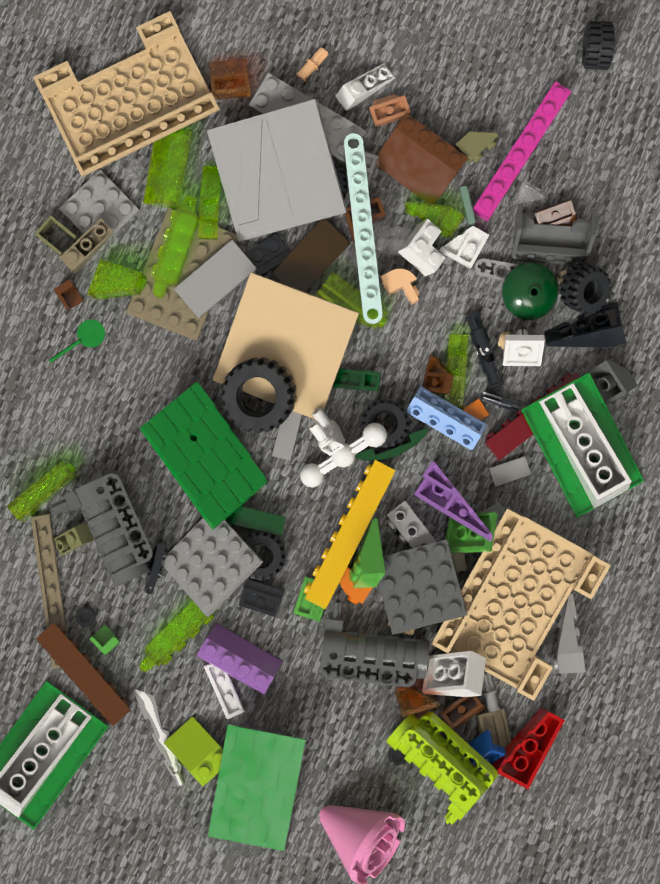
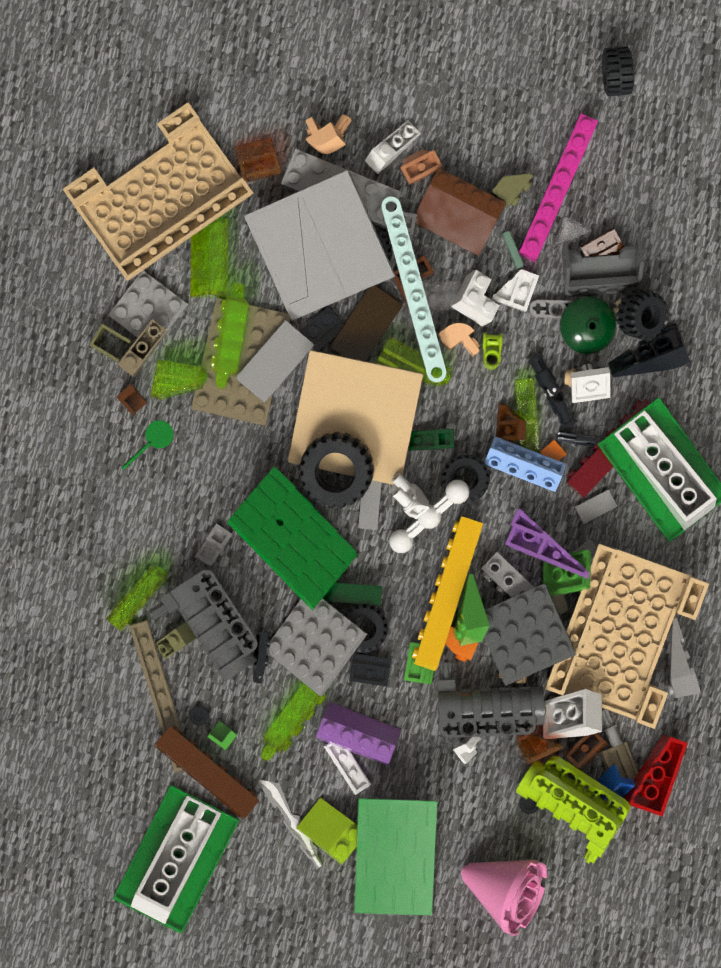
camera: 10 degrees left, 0 degrees up
(126, 451) = (213, 545): none -> light grey slope
(209, 203) = (257, 287): clear neon green slope -> none
(298, 68) = (325, 139): none -> light nougat brick
(344, 691) = (467, 748): none -> white bracket
(414, 438) = (455, 512): dark green slope -> none
(431, 298) = (492, 347): none -> lime piece
(442, 216) = (489, 264): clear neon green slope -> none
(612, 380) = (682, 401): dark grey slope -> none

